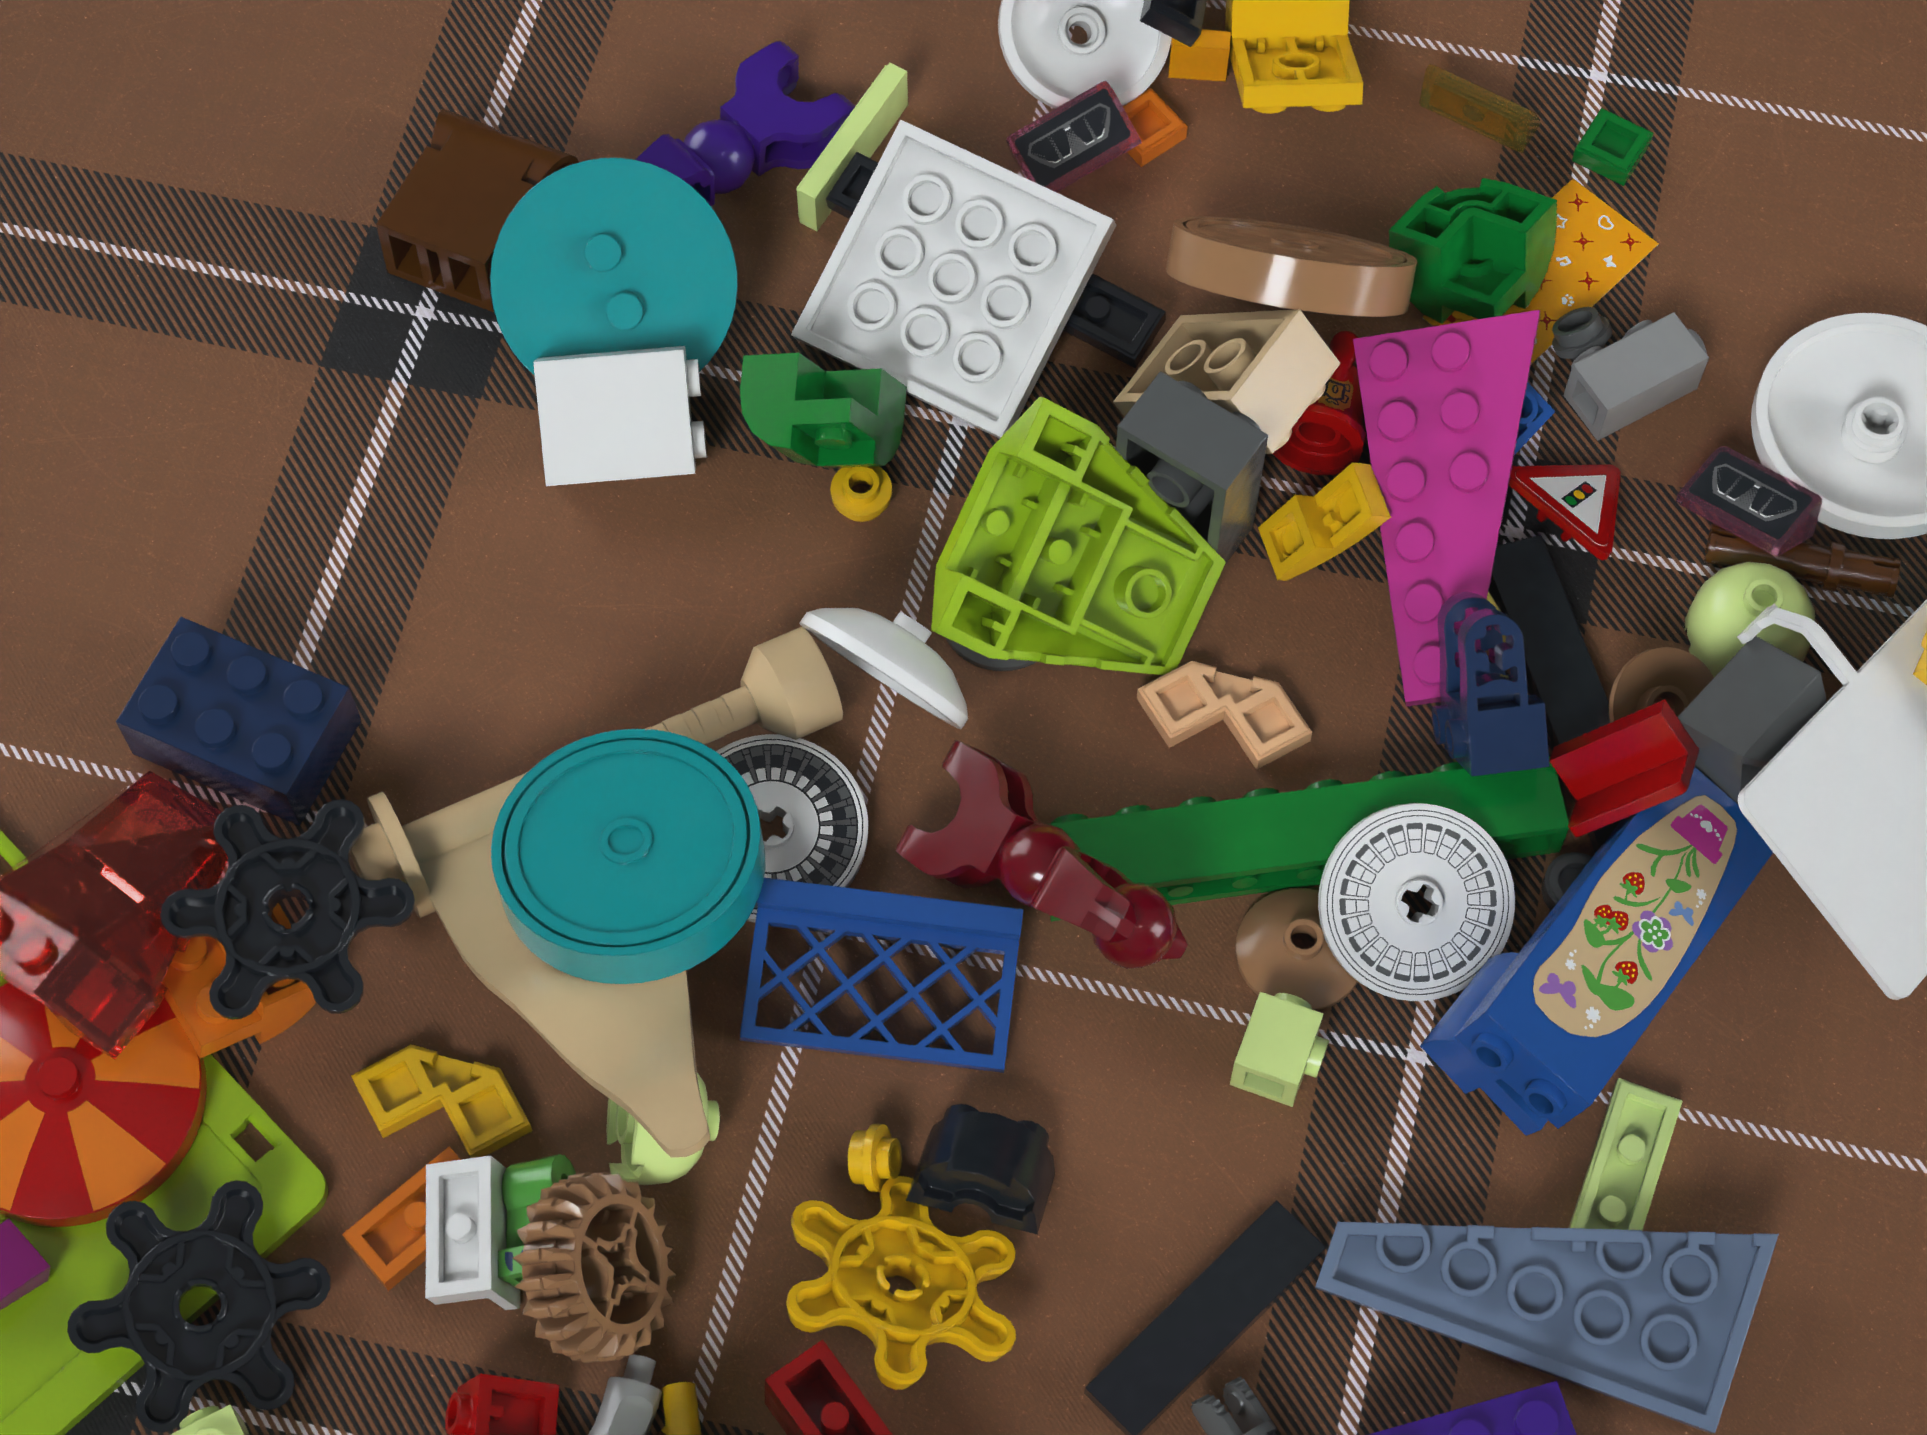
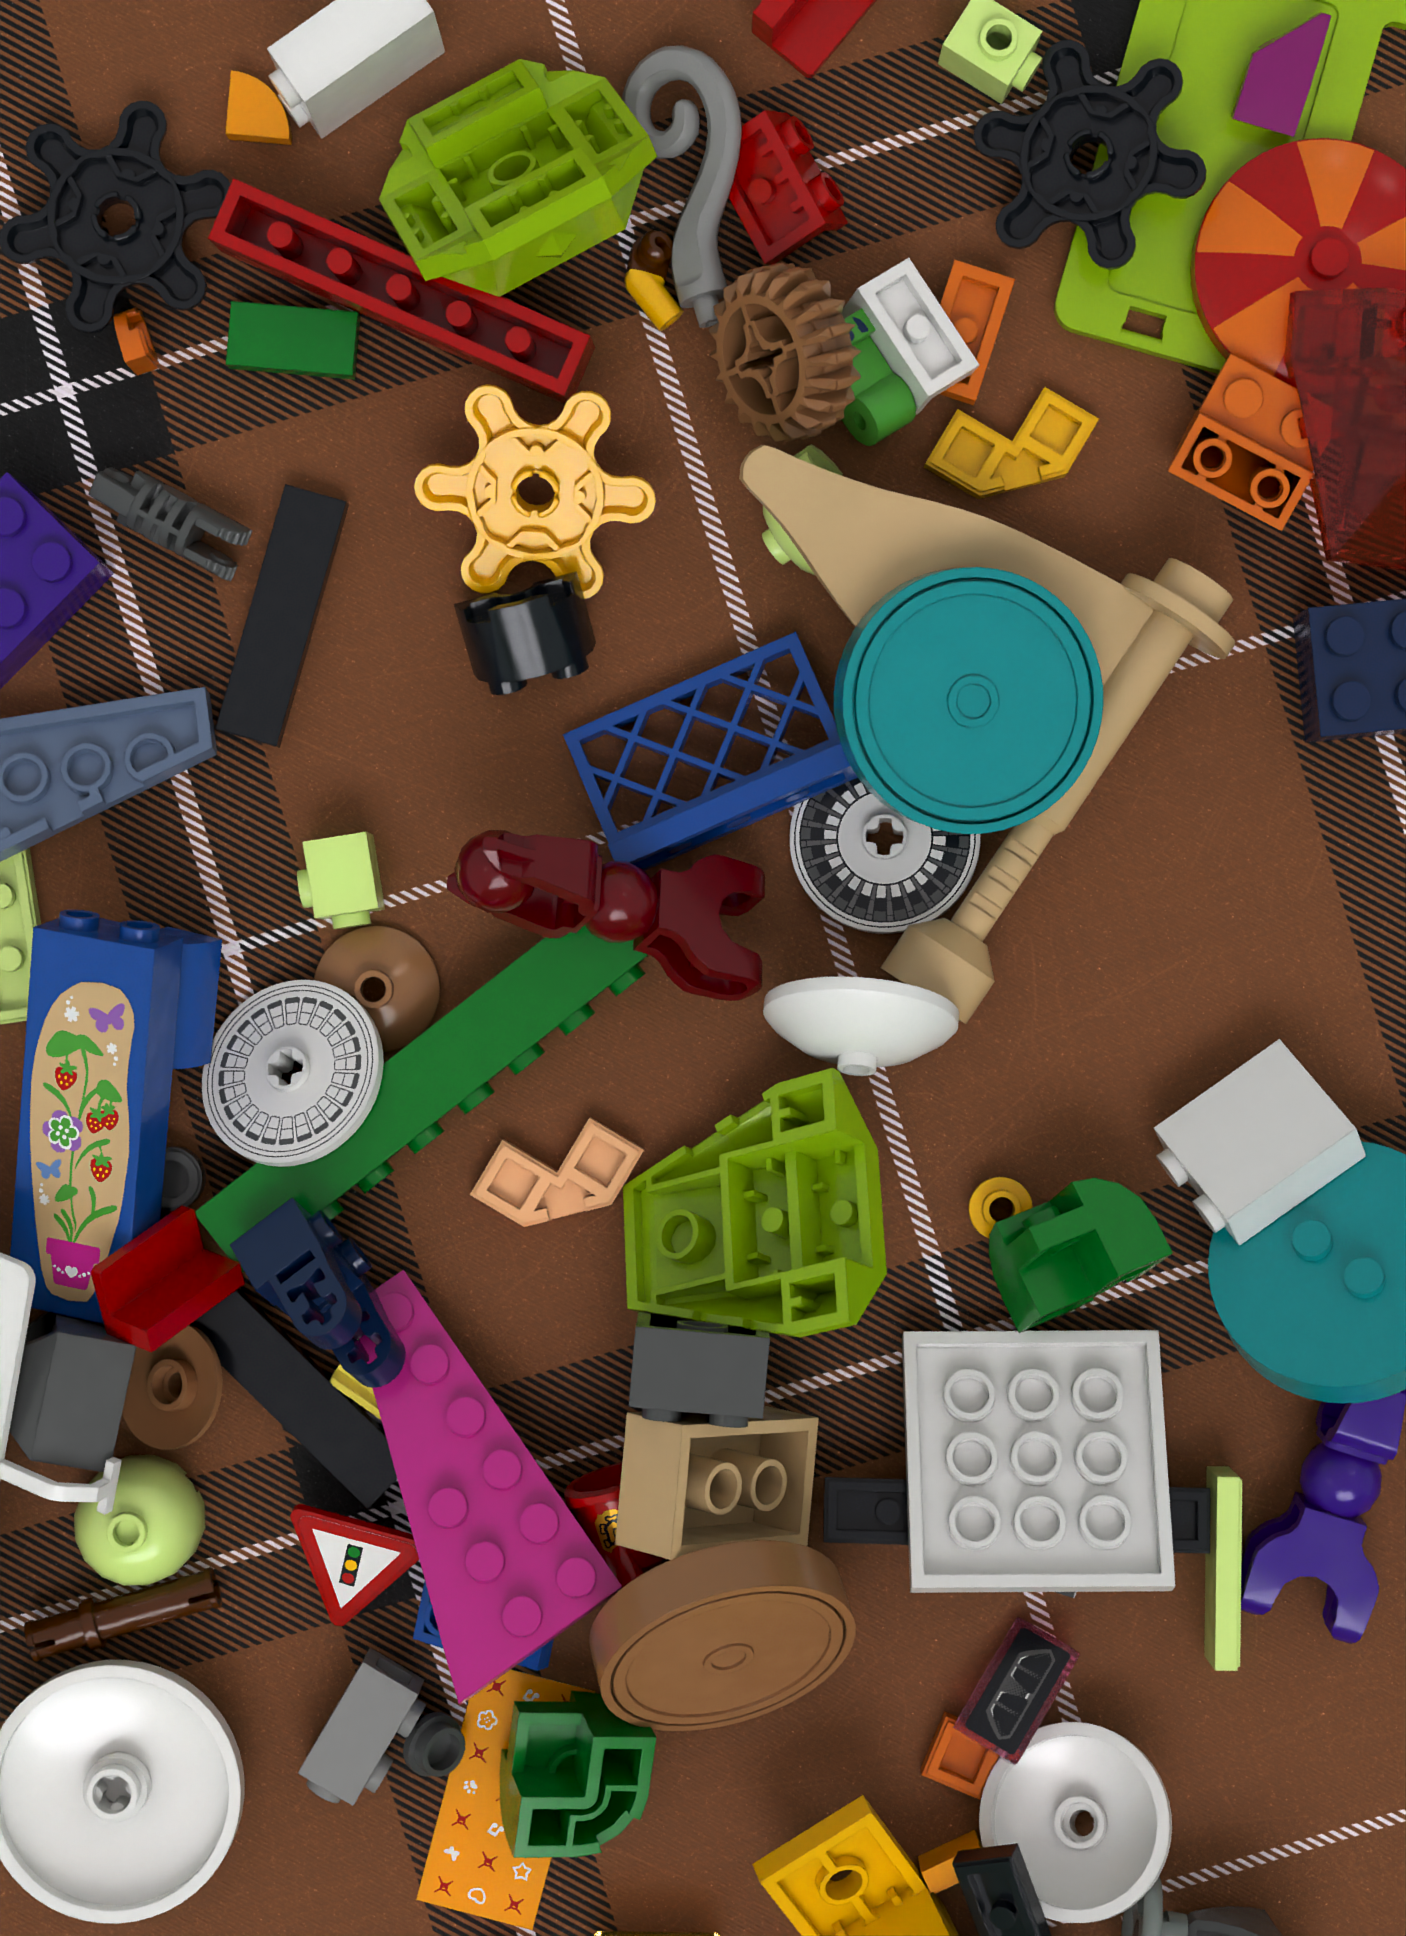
camera: 150 degrees right, 25 degrees up
(264, 873) = (1234, 446): black plate -> none
(874, 1157) = (623, 593): yellow plate -> none
(1326, 524) = (563, 1404): yellow slope -> none
(1751, 501) = (191, 1642): slope -> none

